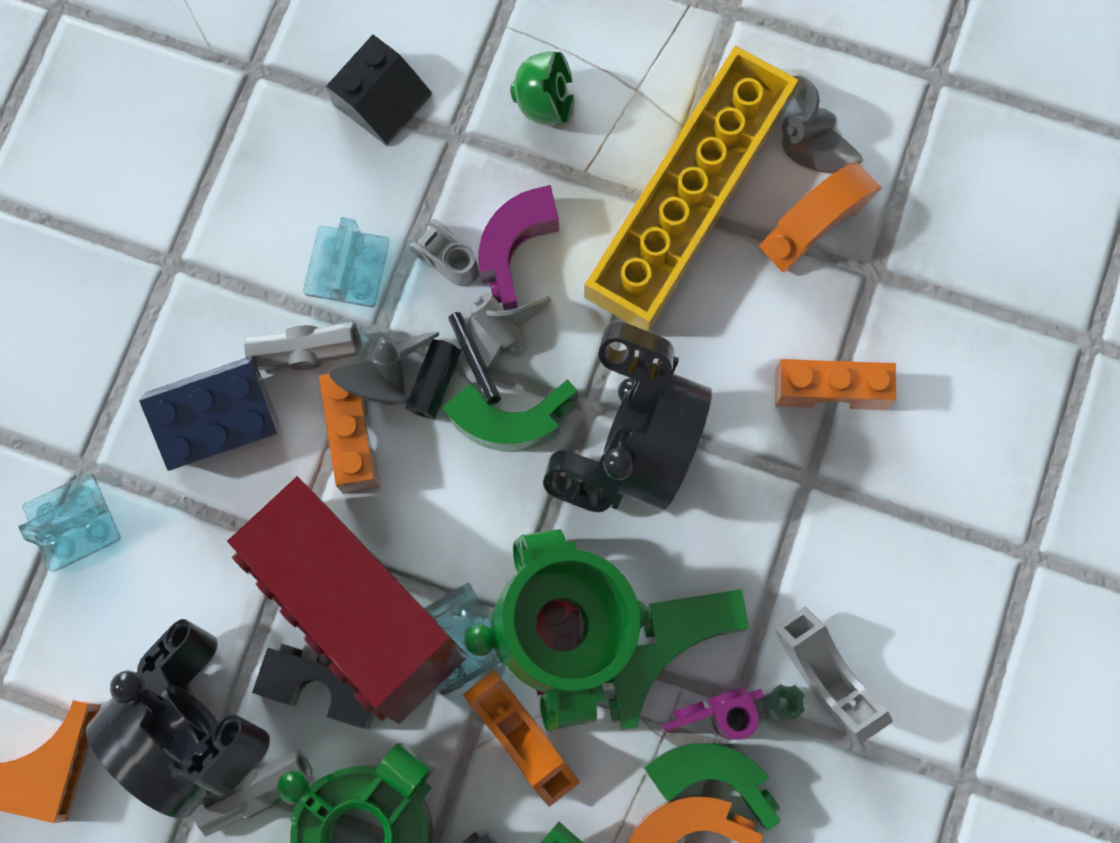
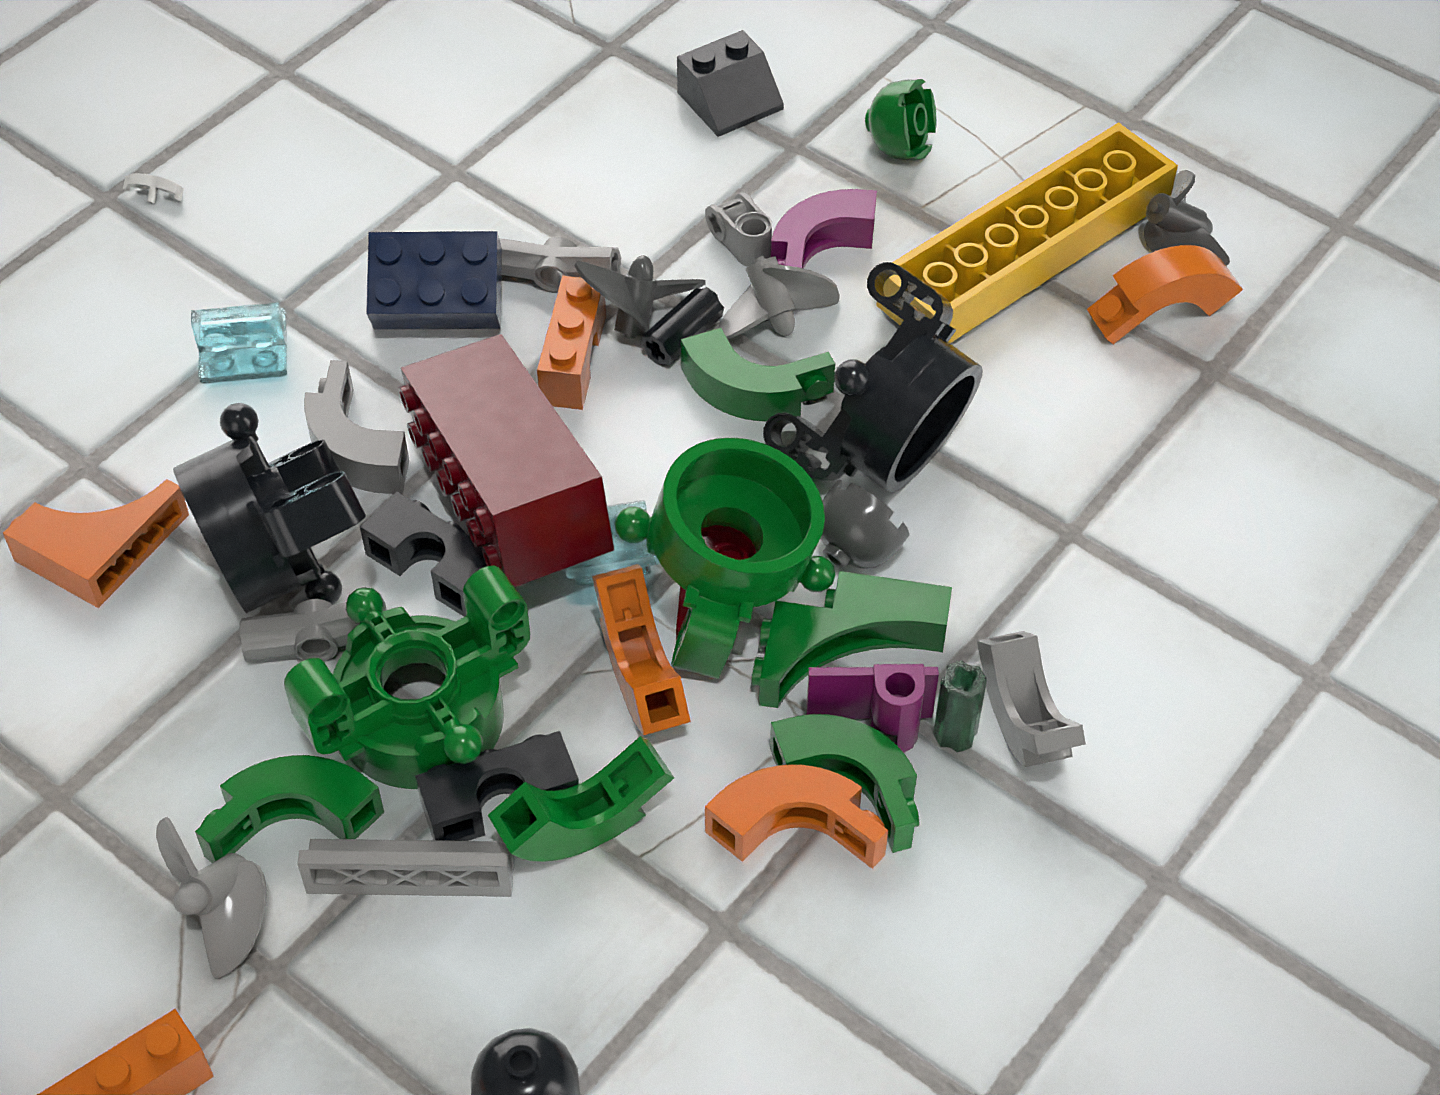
camera: 15 degrees right, 25 degrees down
(219, 610) = (369, 457): none -> light grey arch
(346, 264) = (634, 209): clear light blue bracket -> none
(474, 358) = (734, 314): black piece -> none
(647, 551) = (859, 528): none -> dark grey cylinder
(817, 381) = (1160, 444): orange arch -> none

